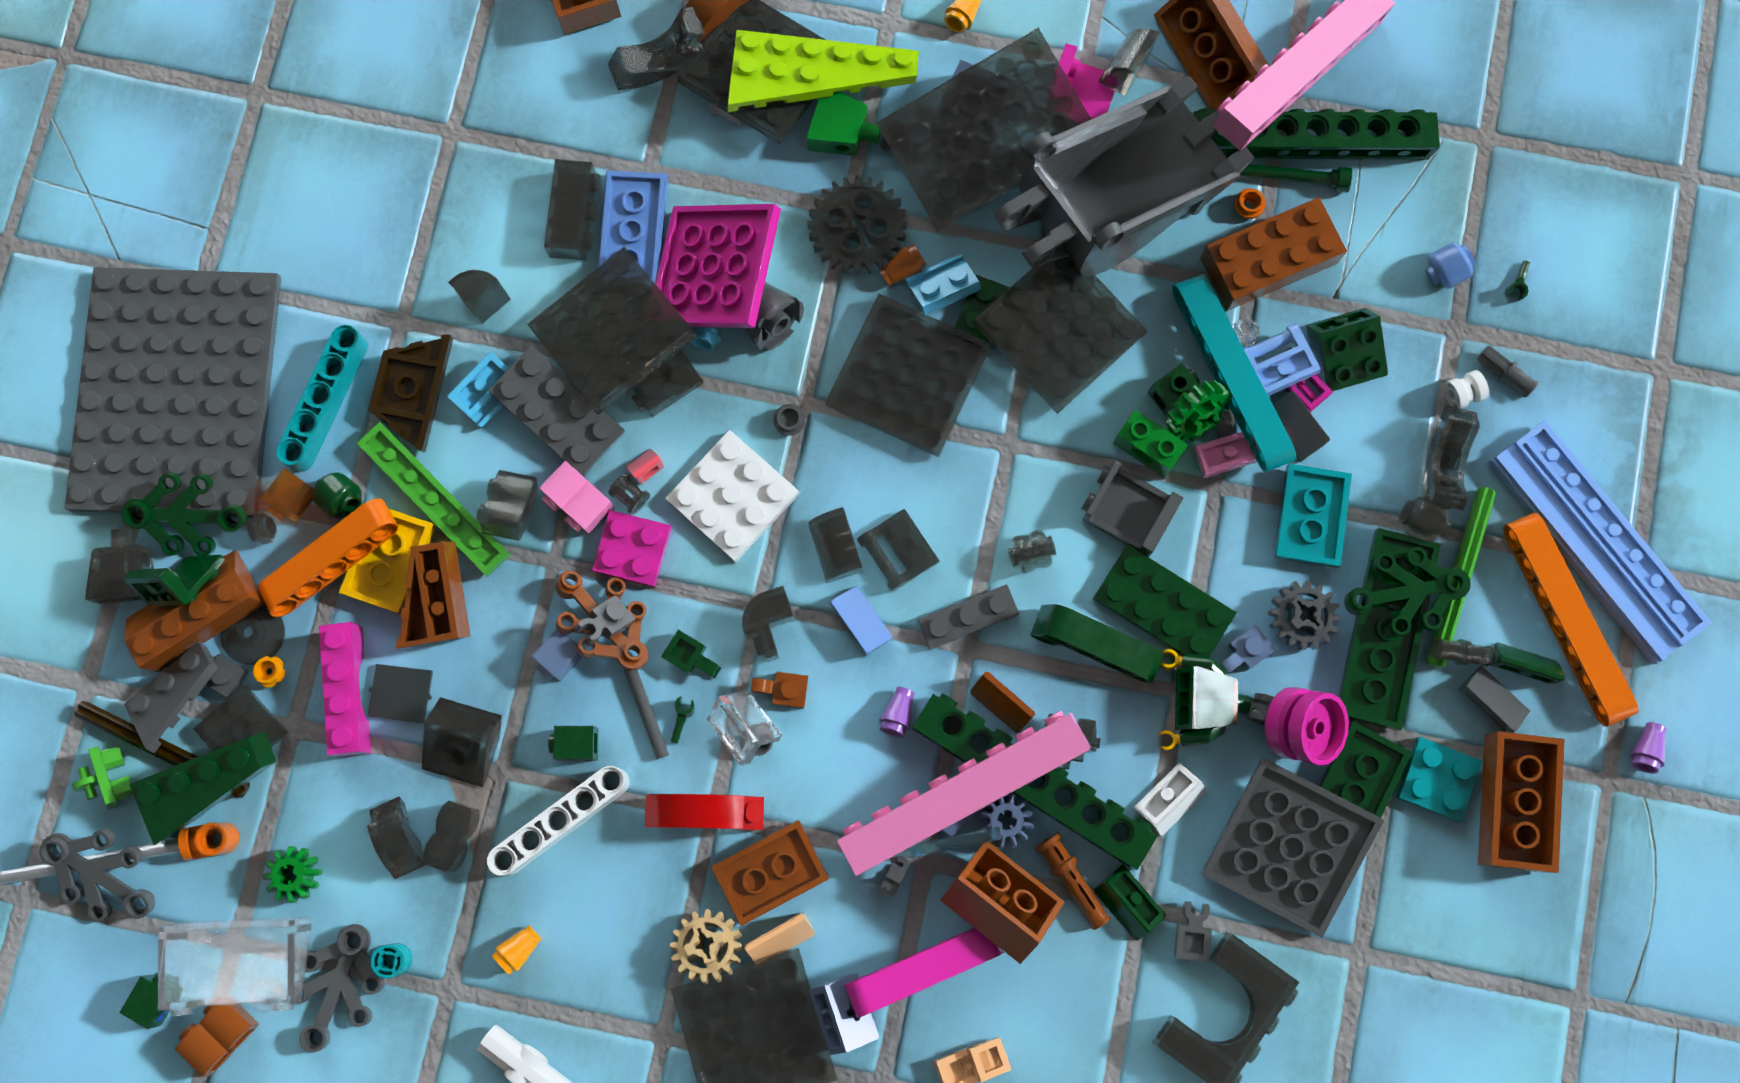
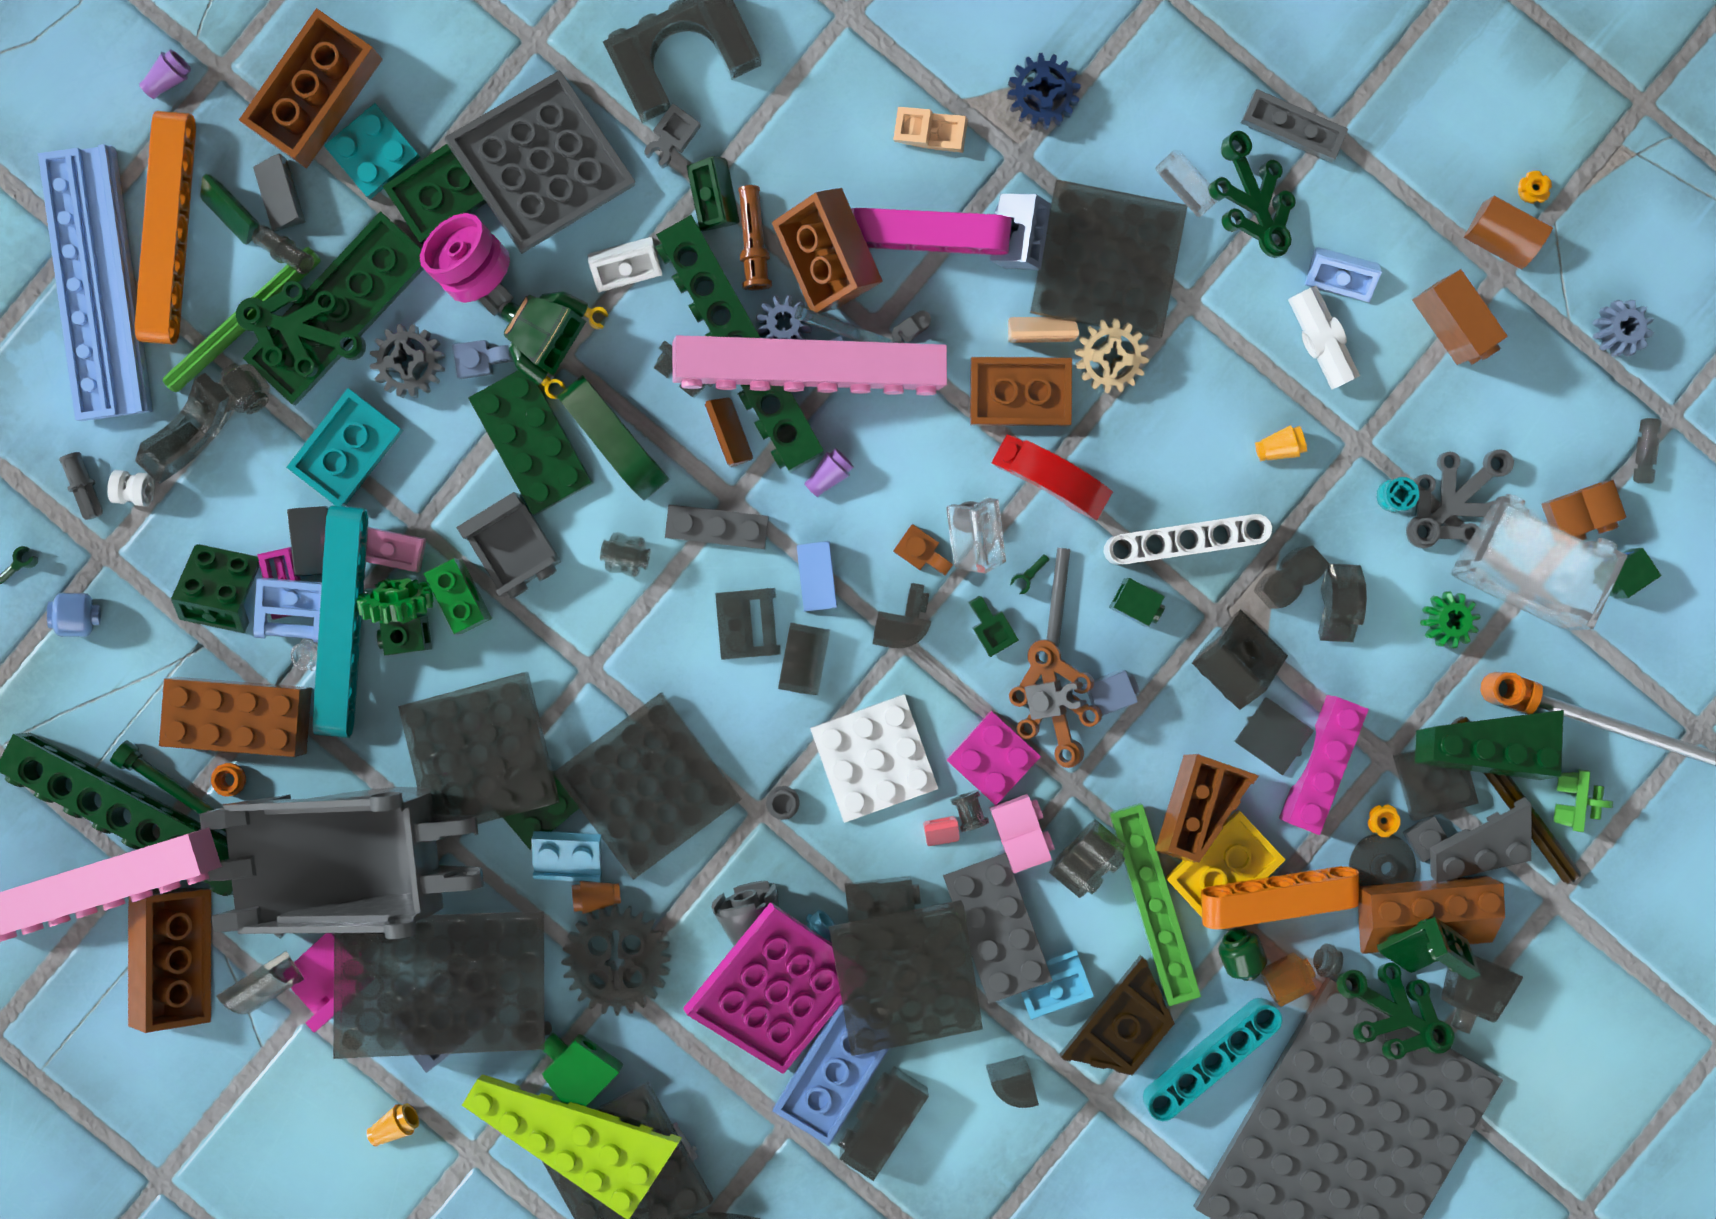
camera: 150 degrees left, 10 degrees up
(93, 873) = (1627, 715): dark grey plant -> none

